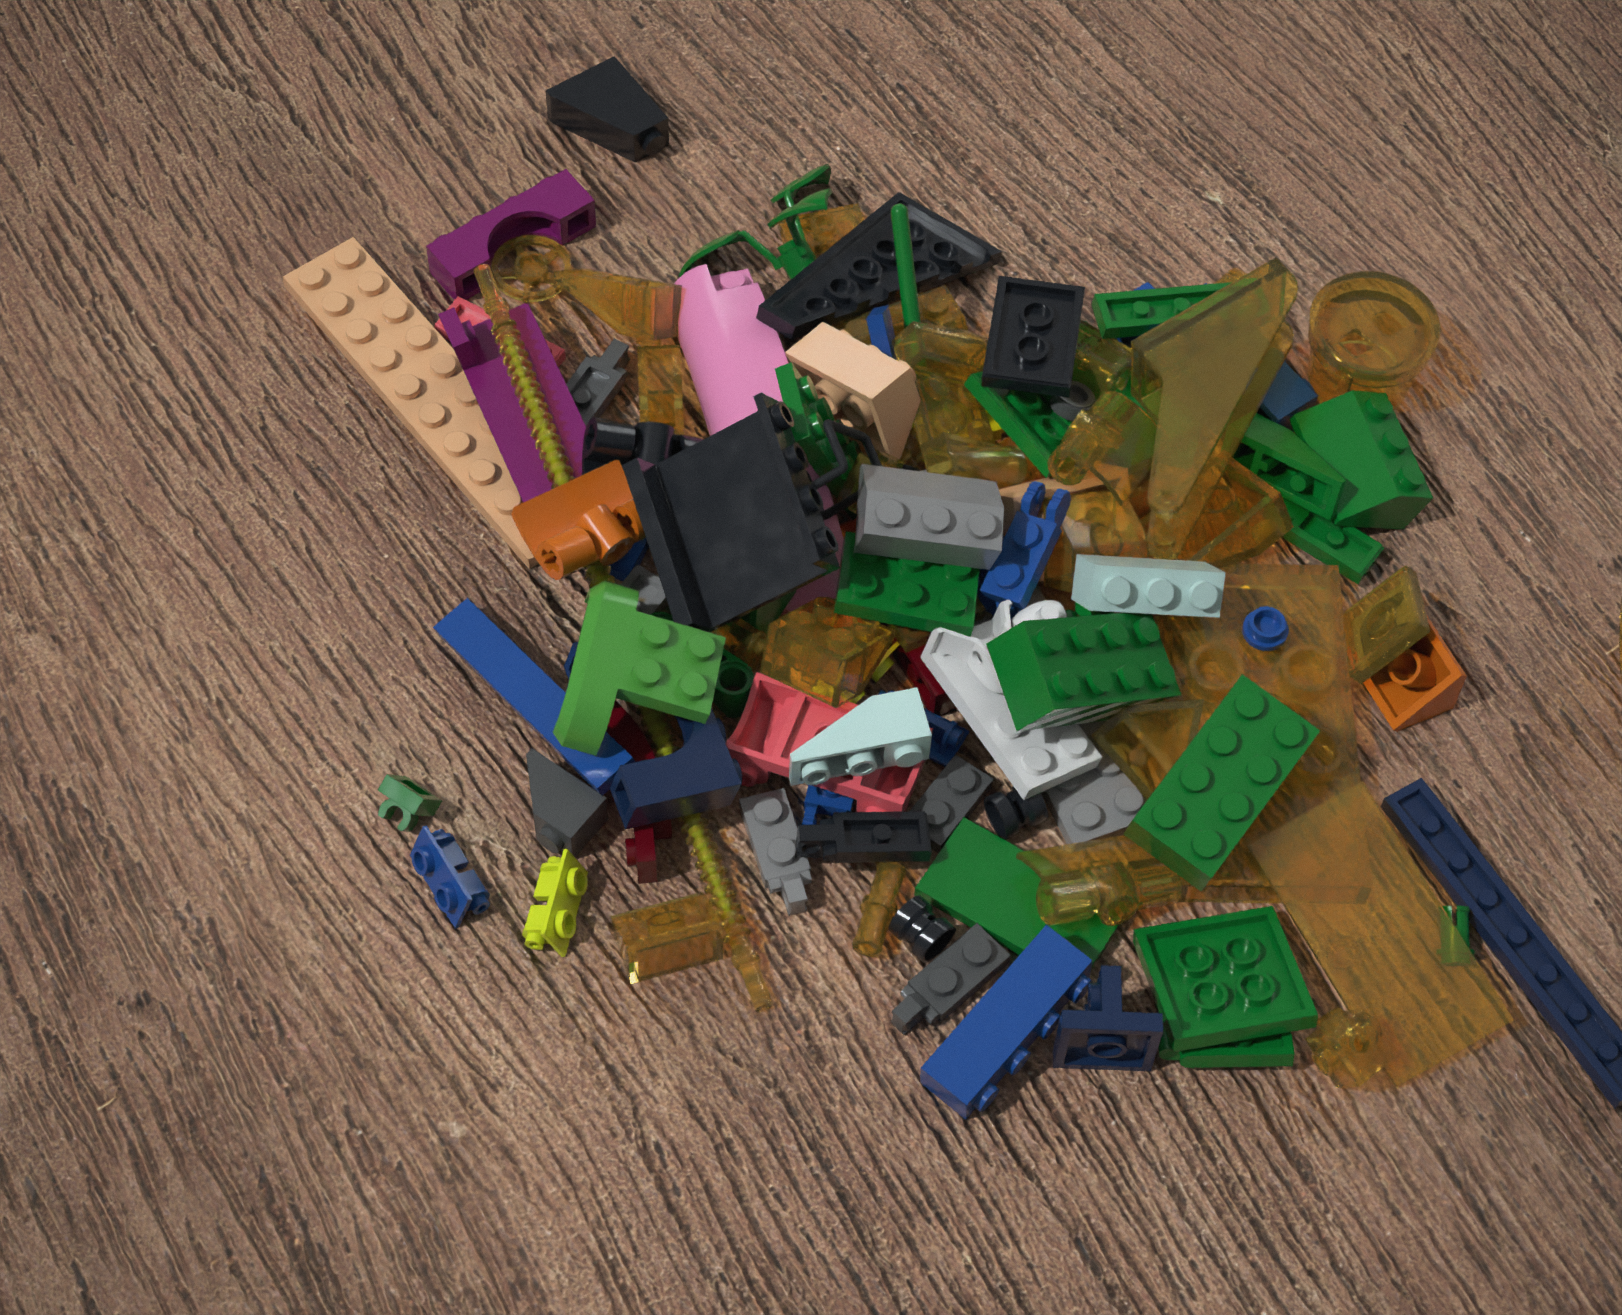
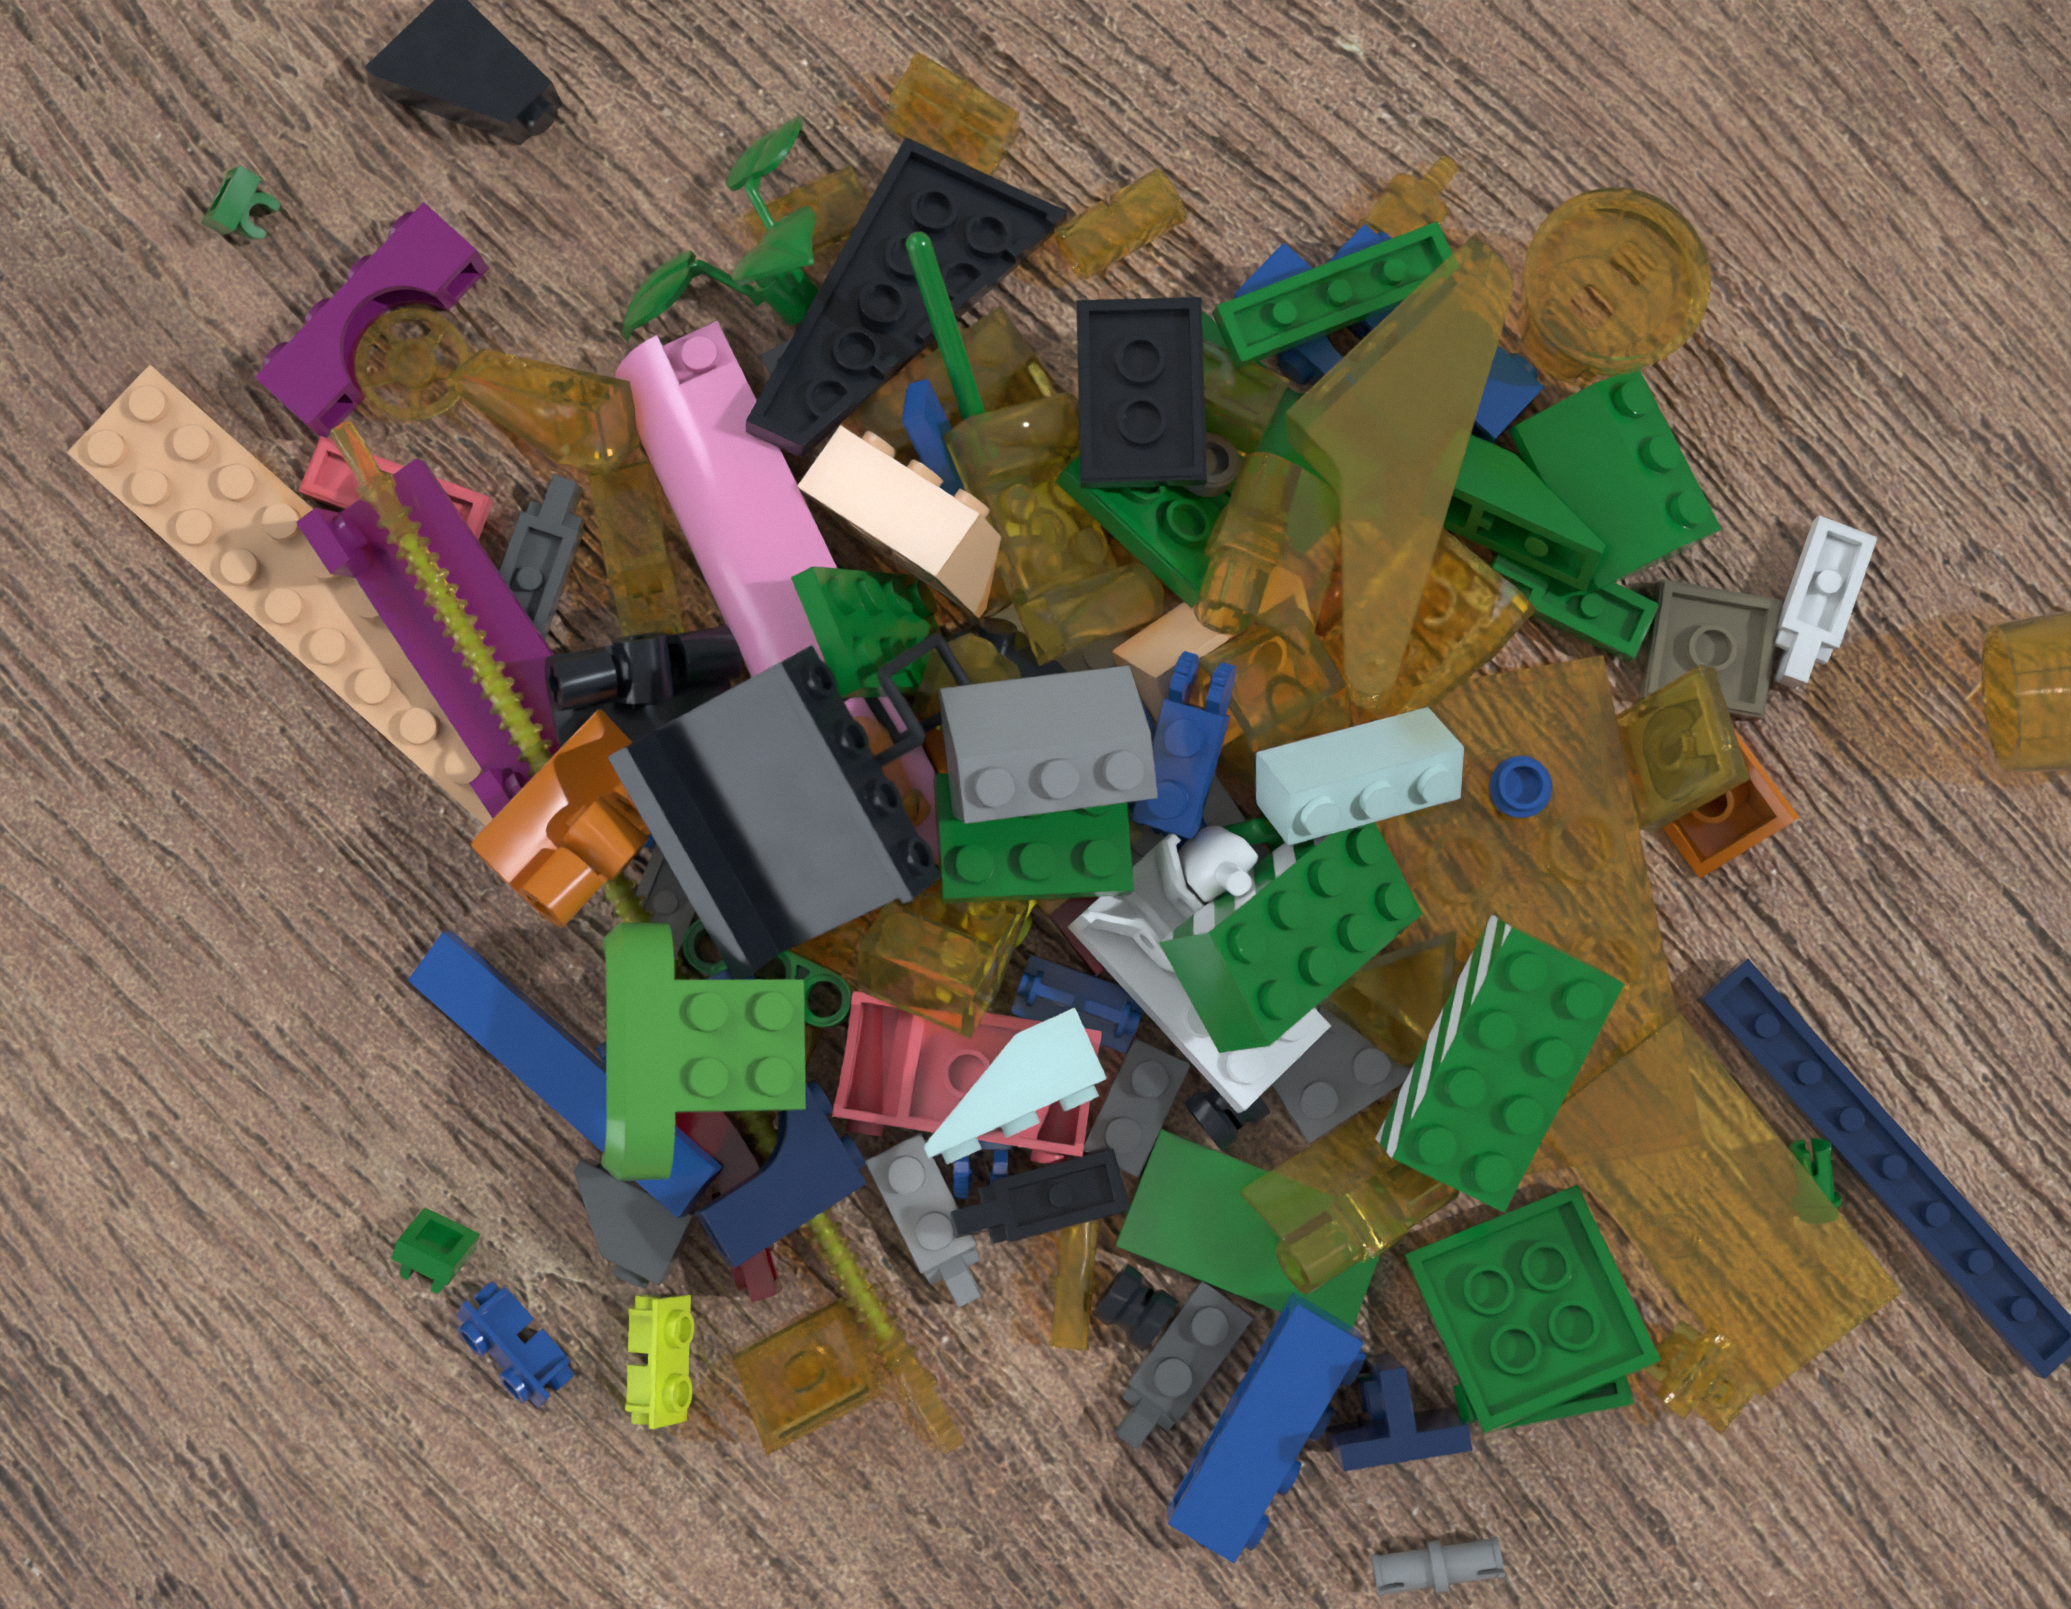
camera: 10 degrees left, 25 degrees up
(437, 156) = (233, 202): none -> green tile
(934, 184) = (951, 116): none -> clear yellow hinge
(1043, 261) = (1112, 232): none -> clear yellow pin
(1125, 1153) = (1437, 1566): none -> light grey pin
(1440, 577) = (1716, 630): none -> dark tan tile
(1502, 565) = (1820, 598): none -> white hinge

